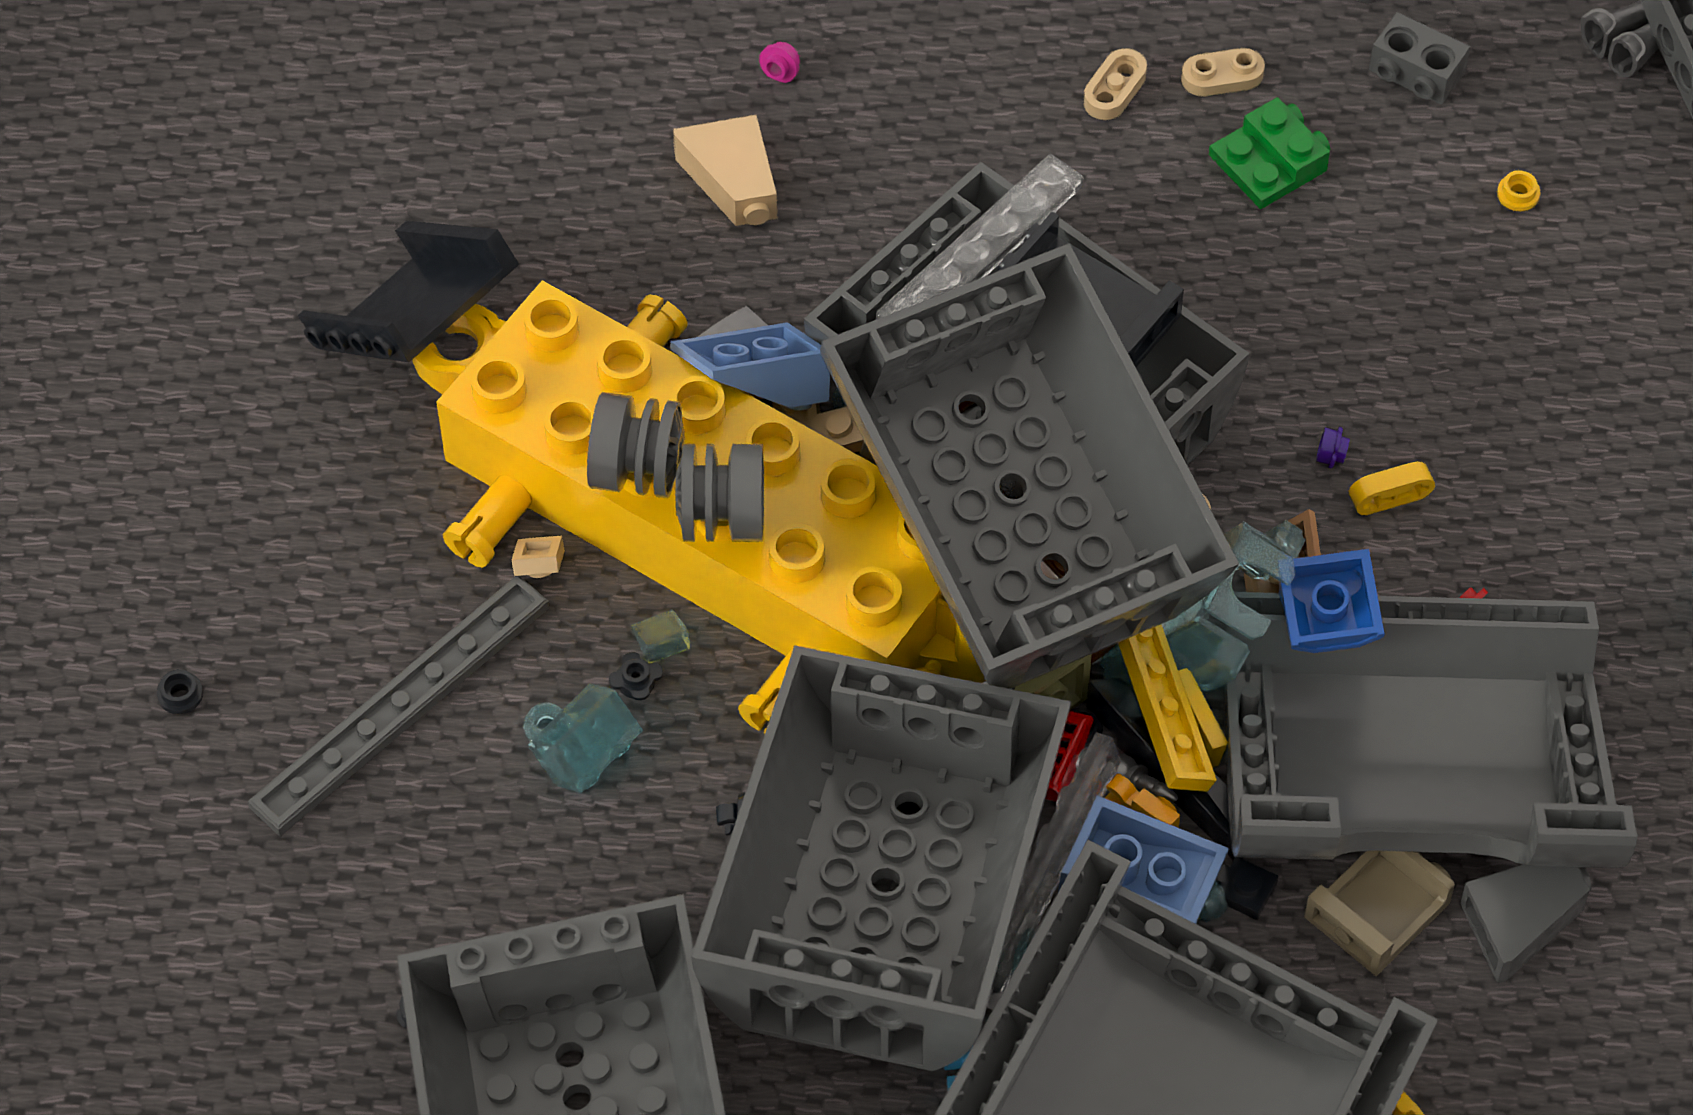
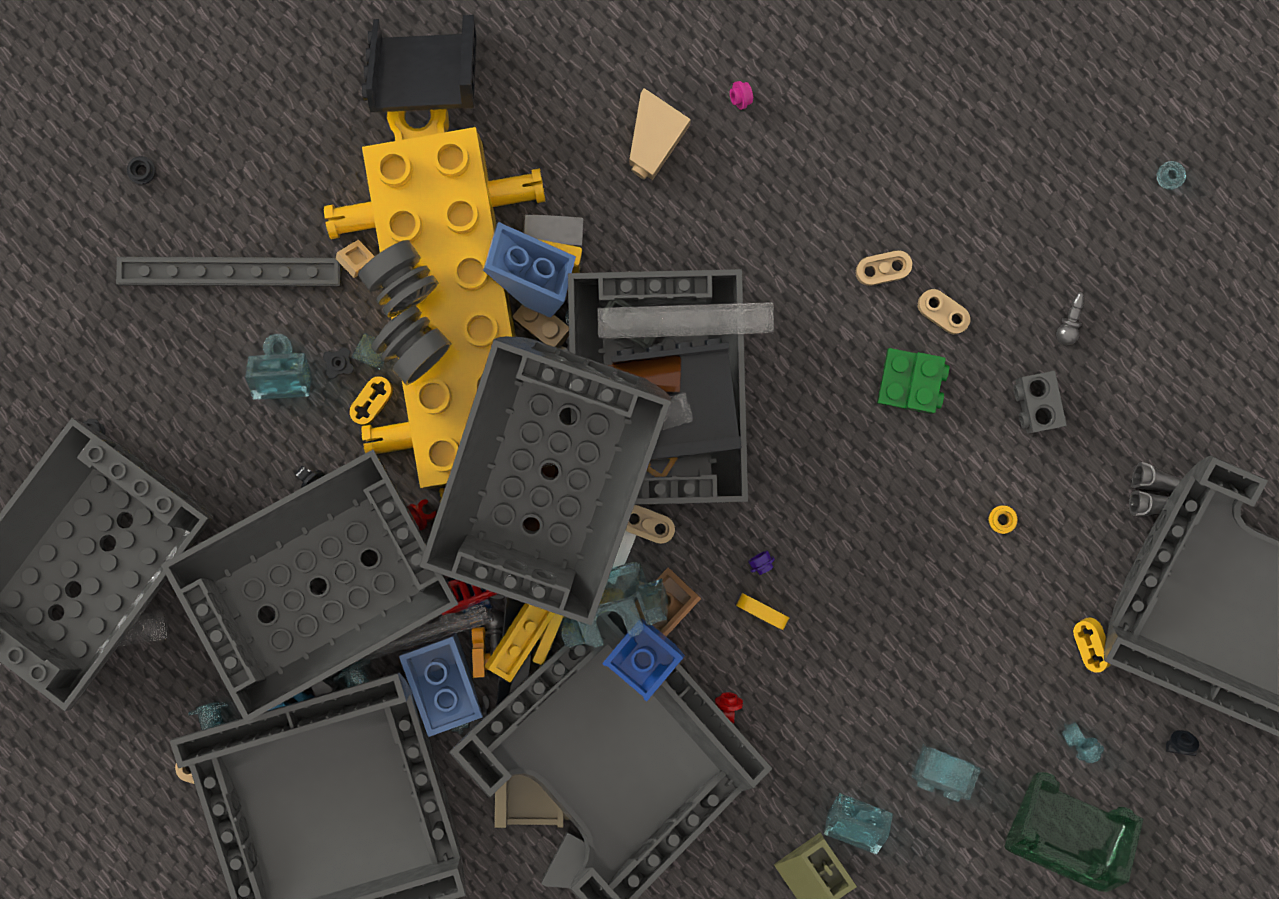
camera: 45 degrees right, 30 degrees up
(726, 679) = (365, 397): none -> yellow beam

